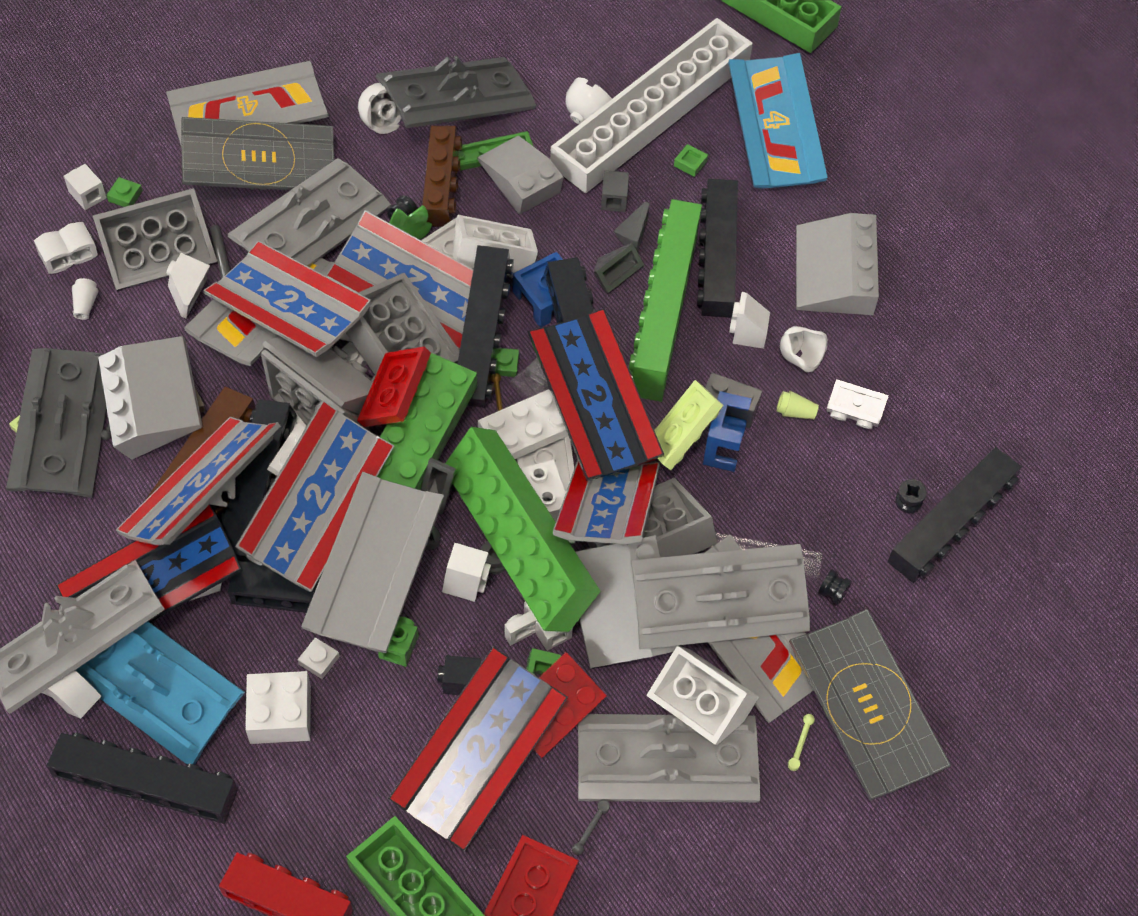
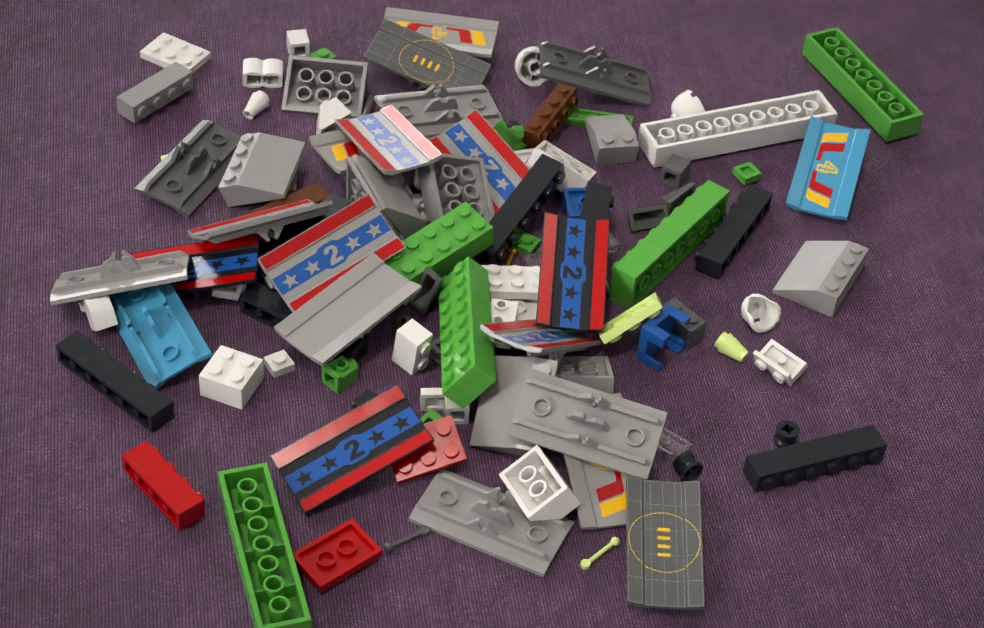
camera: 25 degrees right, 15 degrees down
(394, 387) = (428, 213): red plate -> none
(749, 322) = (727, 280): white slope -> none

